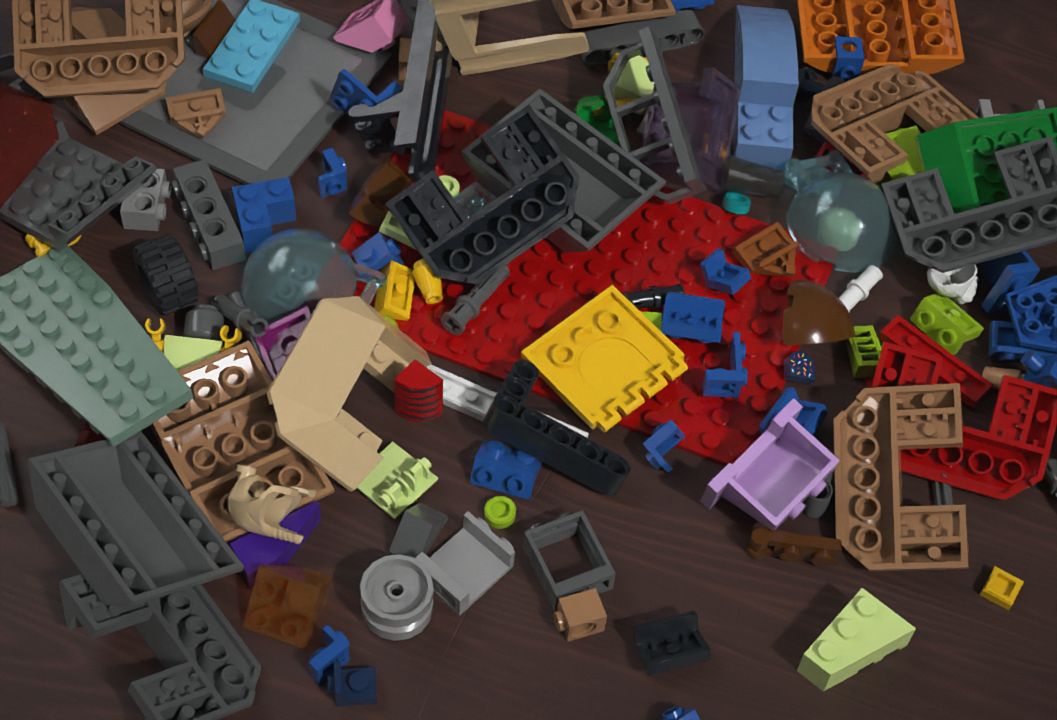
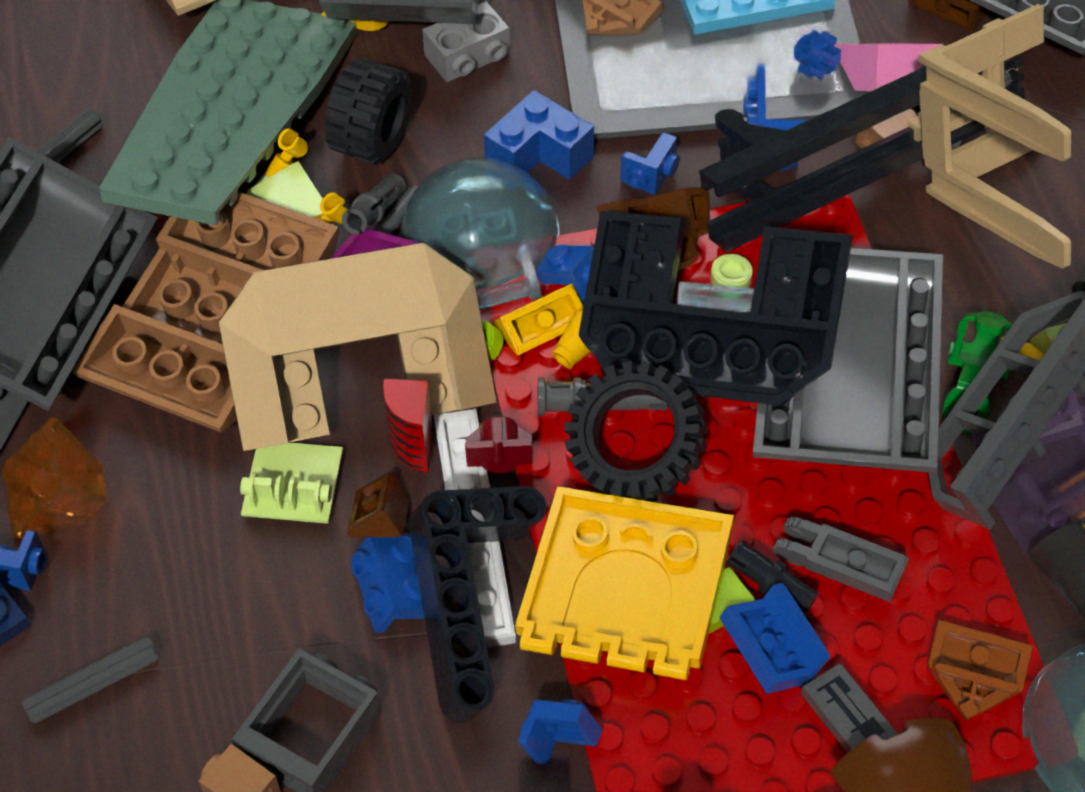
camera: 60 degrees right, 0 degrees up
(203, 322) = (347, 181): dark grey head -> none
(208, 214) = (507, 80): dark grey brick -> none
(259, 509) = (123, 370): tan piece -> none
(263, 550) = (120, 425): dark purple slope -> none
(328, 51) = (817, 54): none -> blue gear
(396, 597) = (121, 577): light grey wheel -> none
(417, 530) = (239, 546): dark grey slope -> none
(445, 657) = (90, 679): none -> dark grey axle
(458, 445) = (379, 509): none -> reddish brown slope
(466, 362) = (499, 445): none -> dark red piece
(468, 564) = (224, 622): light grey panel -> none
(500, 512) = (331, 613): lime tile -> none
(536, 259) = (598, 401): none -> black tyre
(665, 261) = (842, 557): none -> dark grey hinge
(723, 275) = (882, 631): blue bracket -> none
(727, 382) = (708, 733): blue bracket -> none
(736, 203) = (1025, 583): teal tile -> none
(753, 319) = (845, 708): none -> dark grey tile

